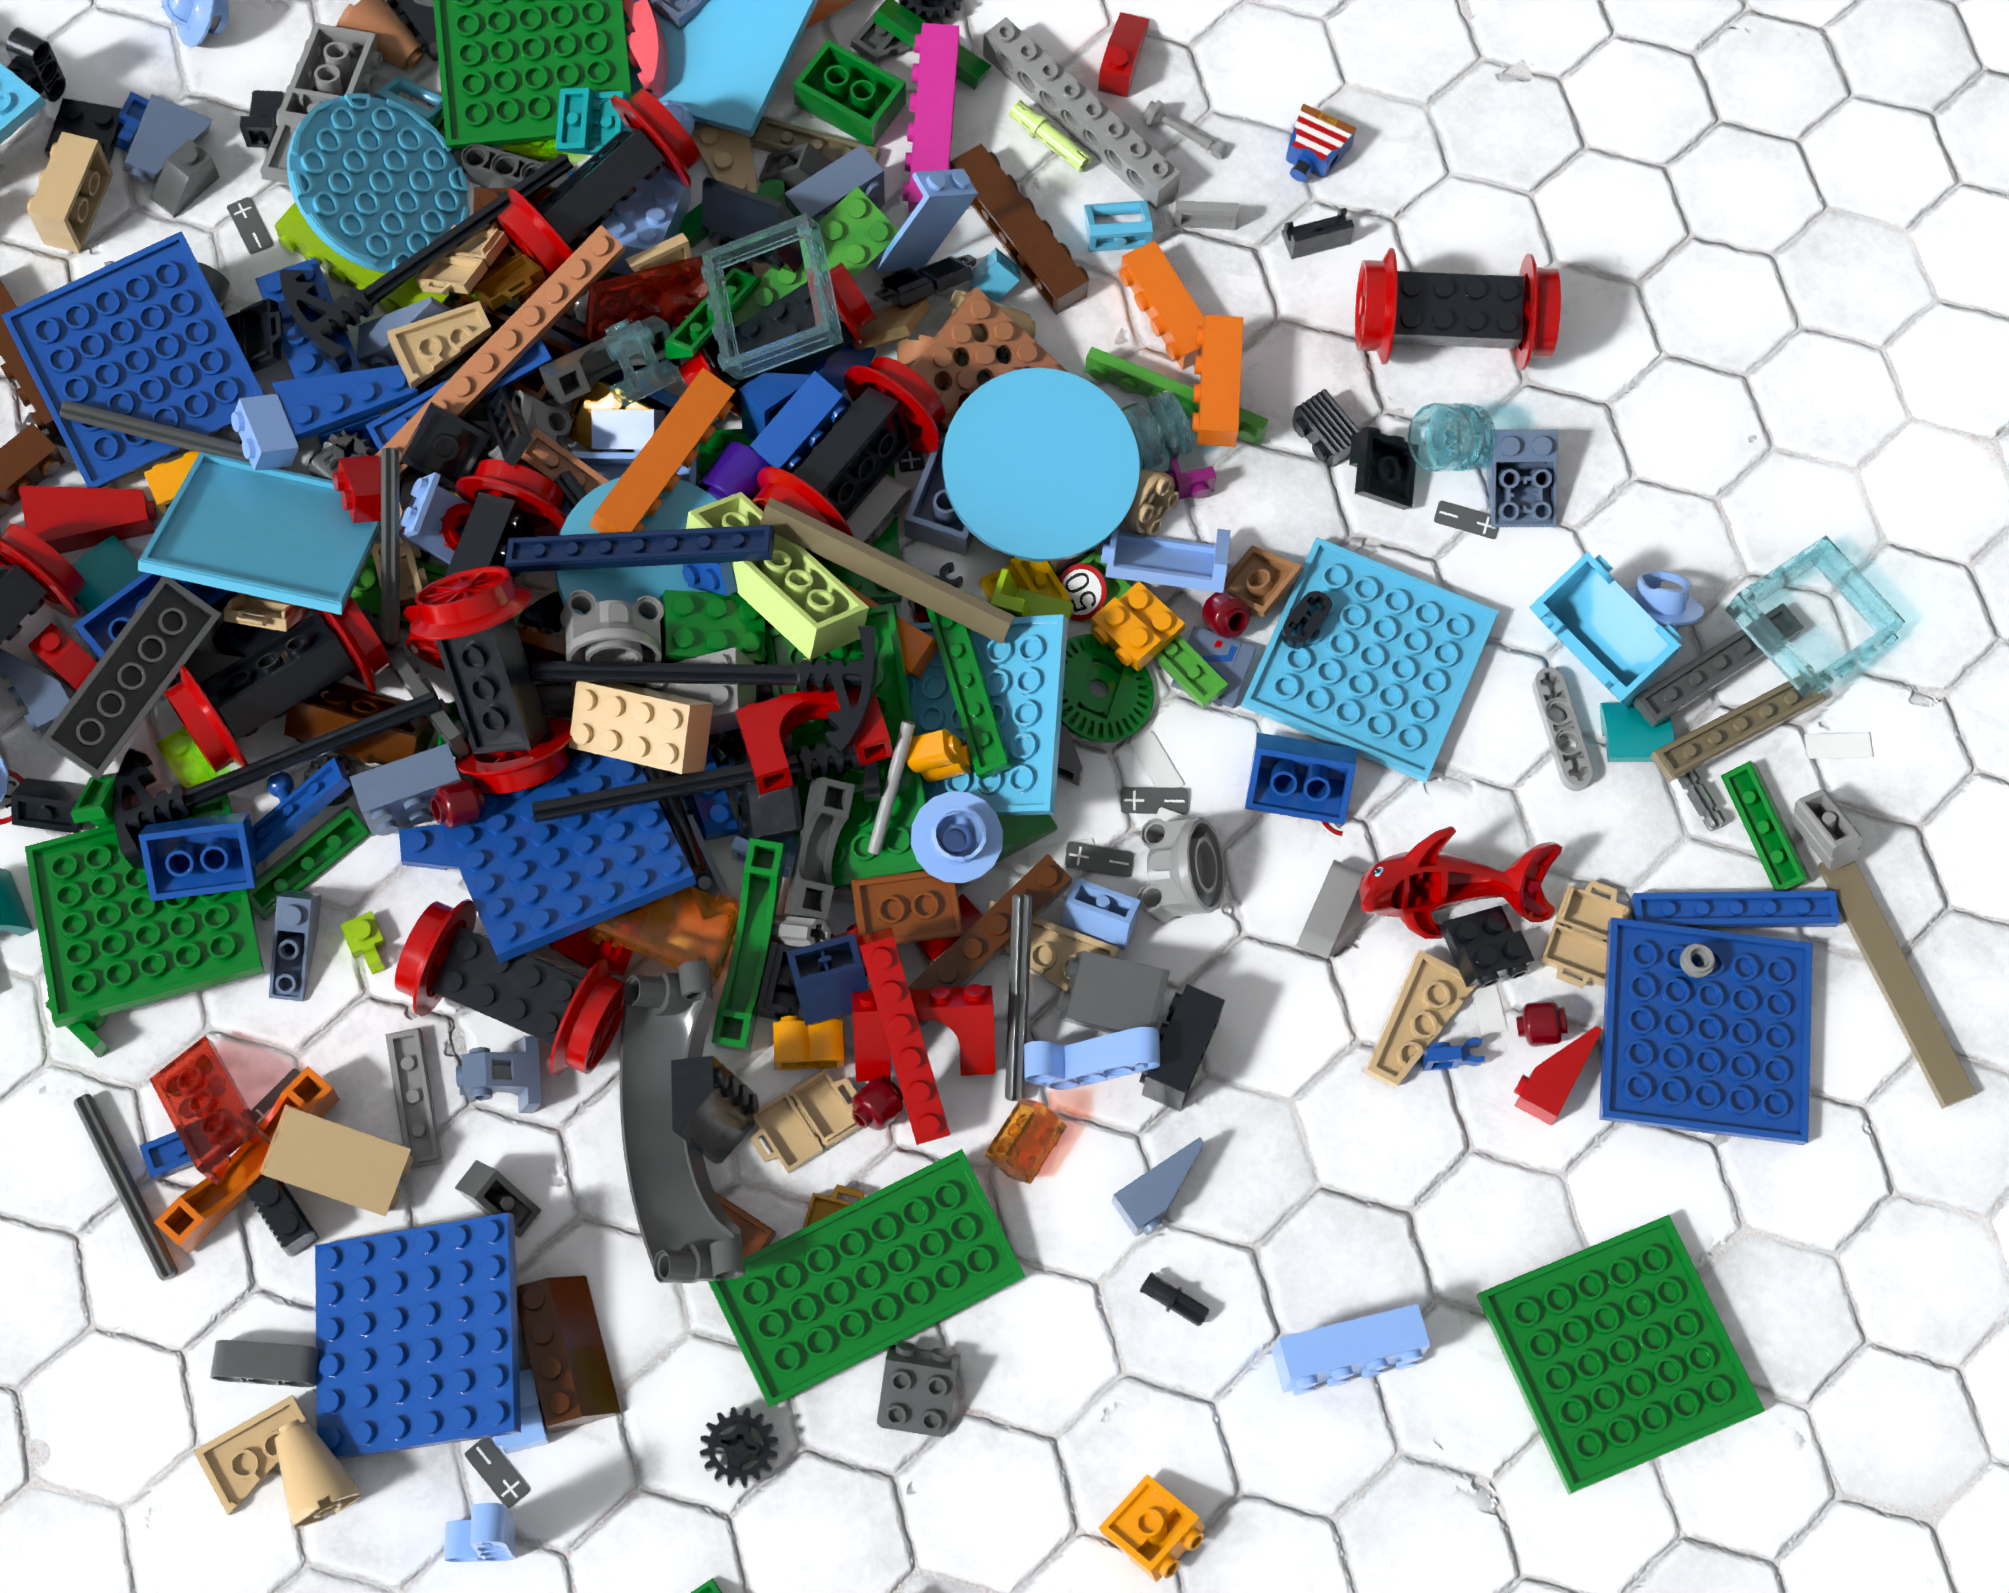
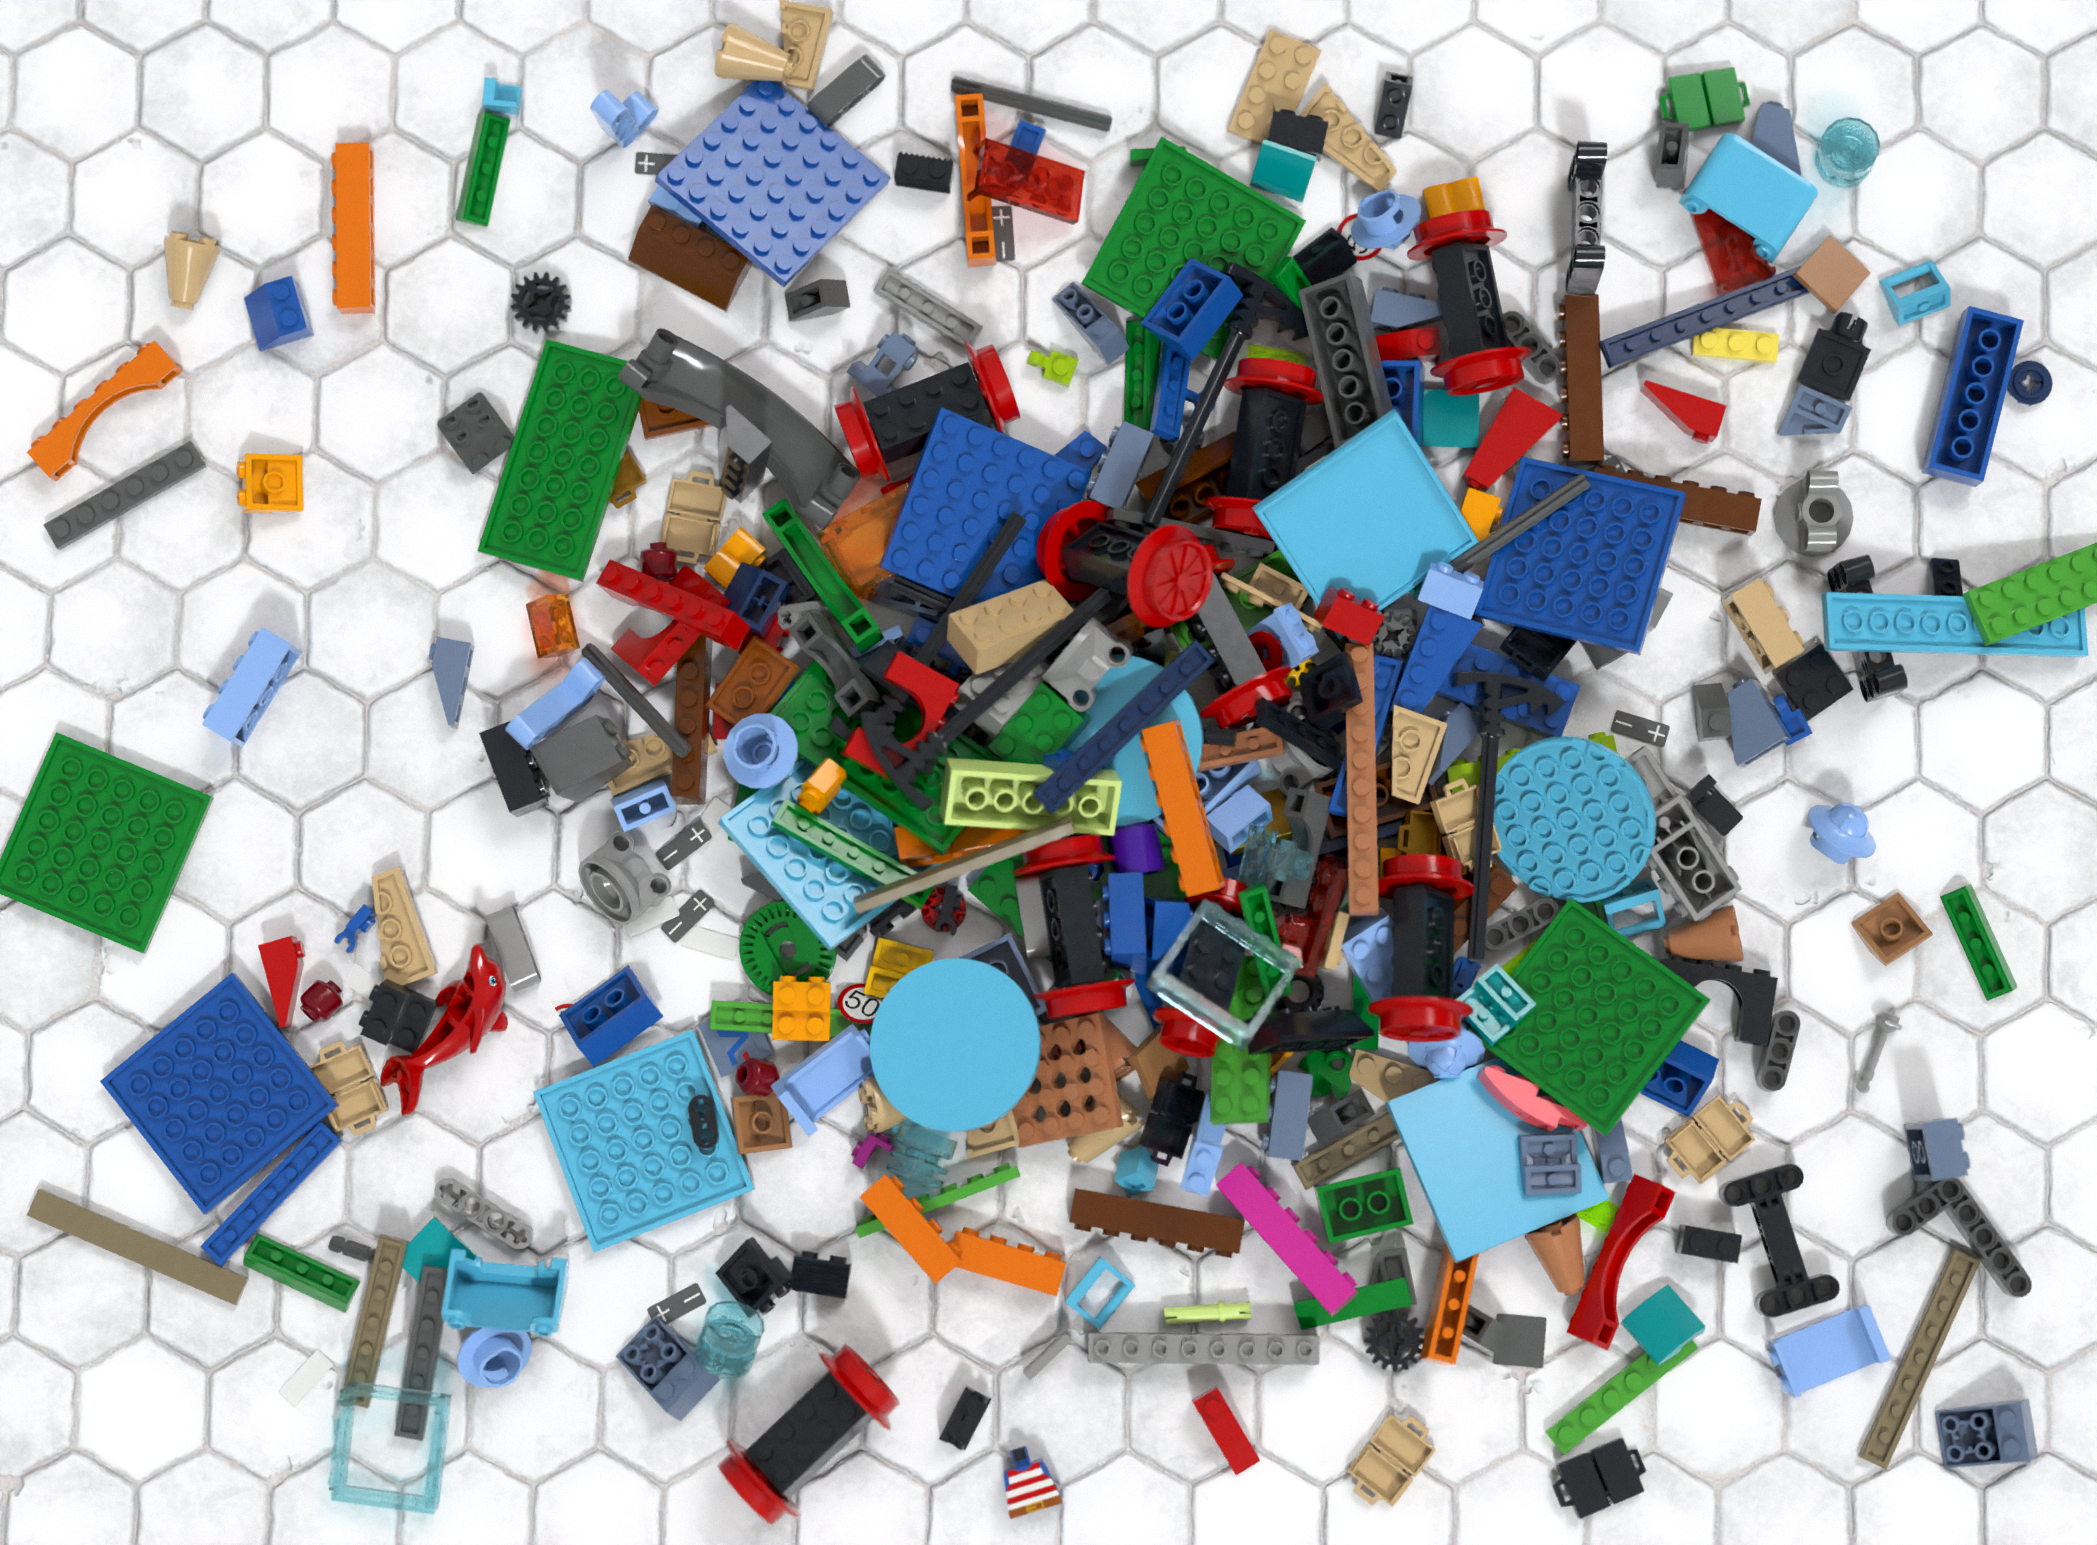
camera: 140 degrees right, 15 degrees up
(336, 1161) = (919, 221): tan panel -> none
(390, 547) = (1286, 590): dark grey axle -> none
(457, 803) = (1073, 480): dark red head -> none
(891, 787) = (826, 738): light grey bar -> none
(1025, 602) = (874, 955): lime panel -> none
(1156, 113) = (1155, 1401): light grey piece -> none
(1174, 1299) = (382, 623): black axle -> none
(1704, 954) = (251, 1127): light grey plate -> none
(1827, 829) = (257, 1298): light grey brick -> none

